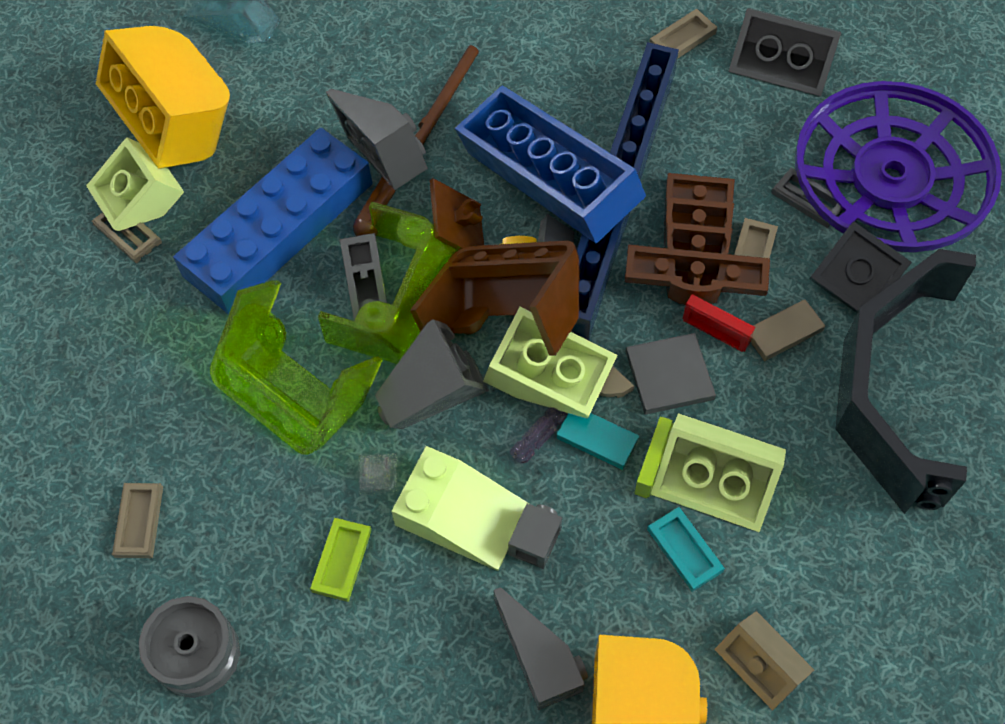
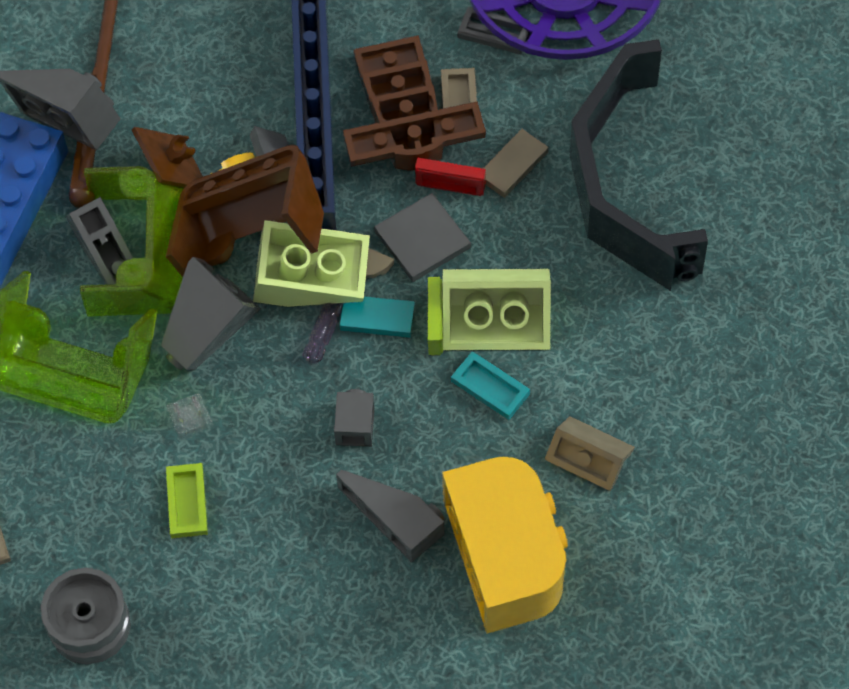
camera: 20 degrees left, 0 degrees up
(458, 508) = (276, 419): yellowish green slope -> none
(551, 163) = (239, 76): blue brick -> none
(859, 267) = (560, 83): black hinge -> none

